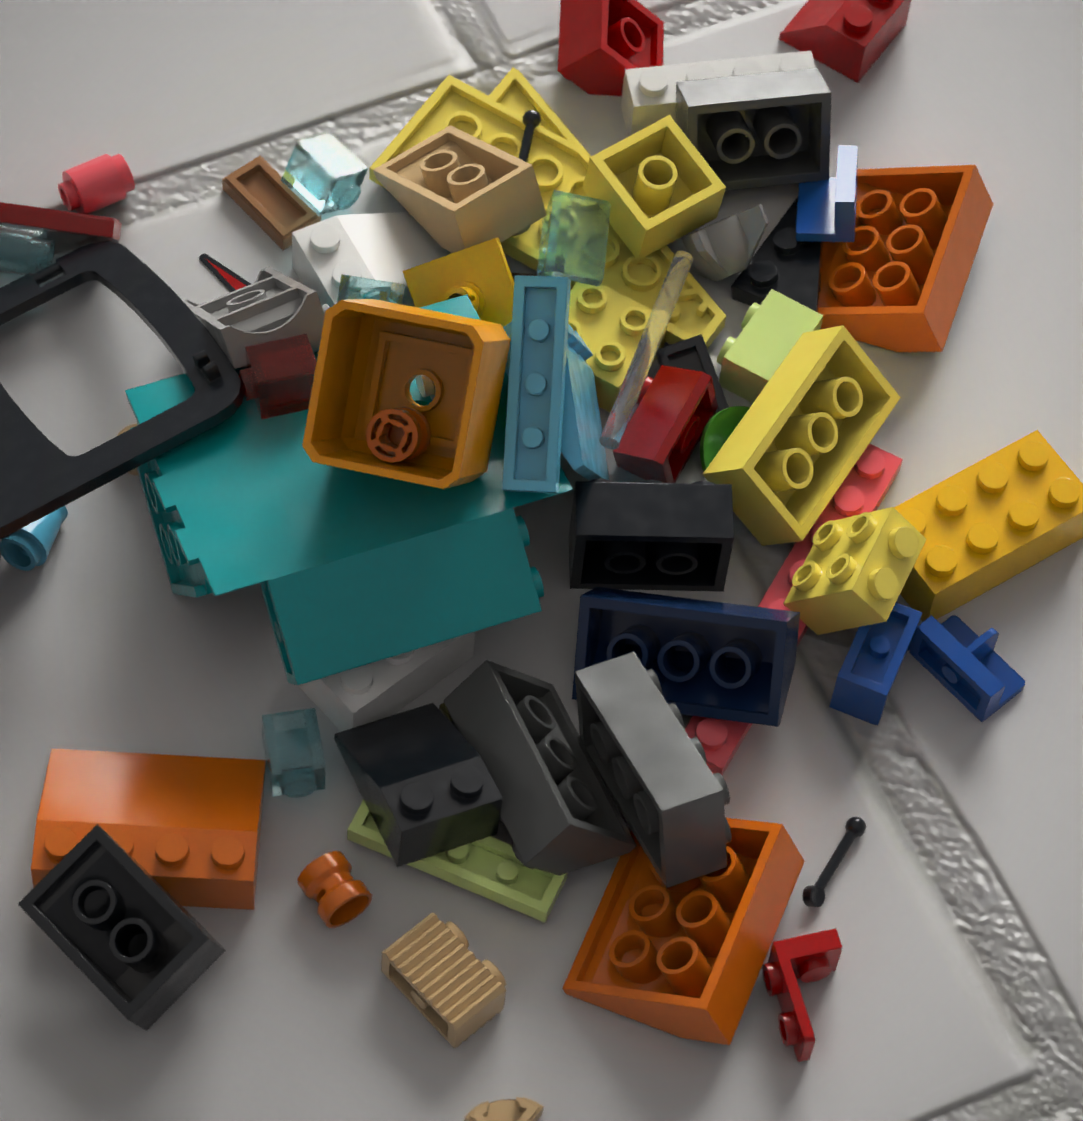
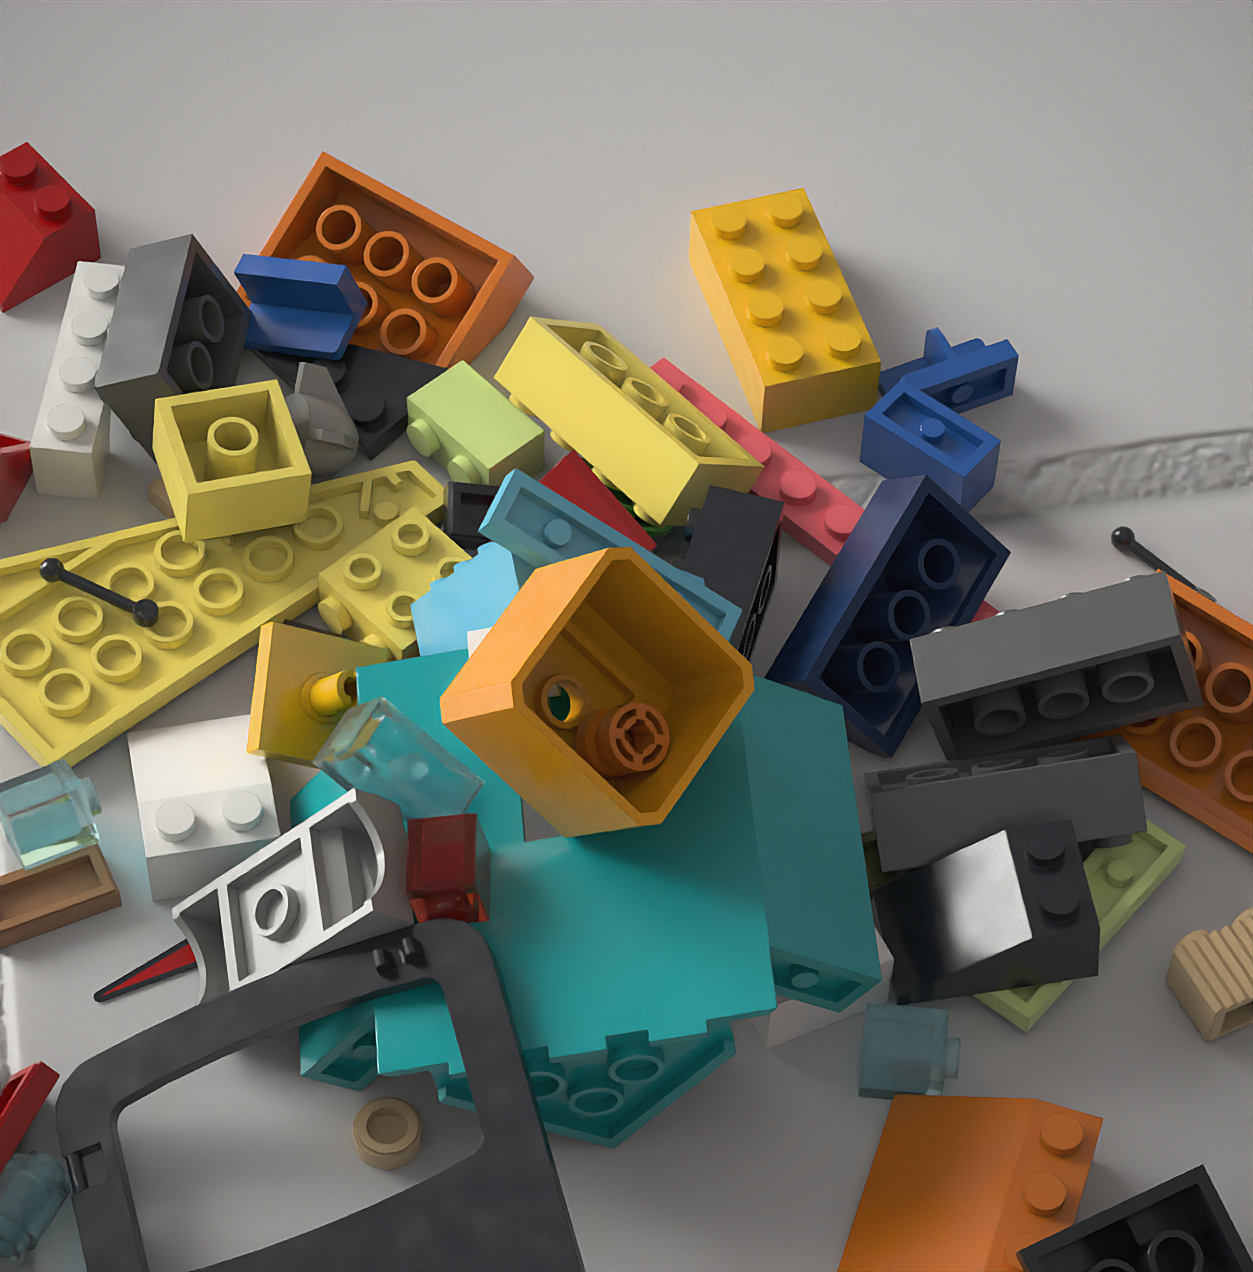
camera: 70 degrees left, 5 degrees down
(333, 887) = (1103, 1054): orange wheel -> none
(463, 189) = (143, 662): tan slope -> none
(574, 238) = (275, 571): clear light blue panel -> none
(646, 350) = (410, 500): clear axle -> none
(855, 571) = (838, 417): light yellow brick -> none

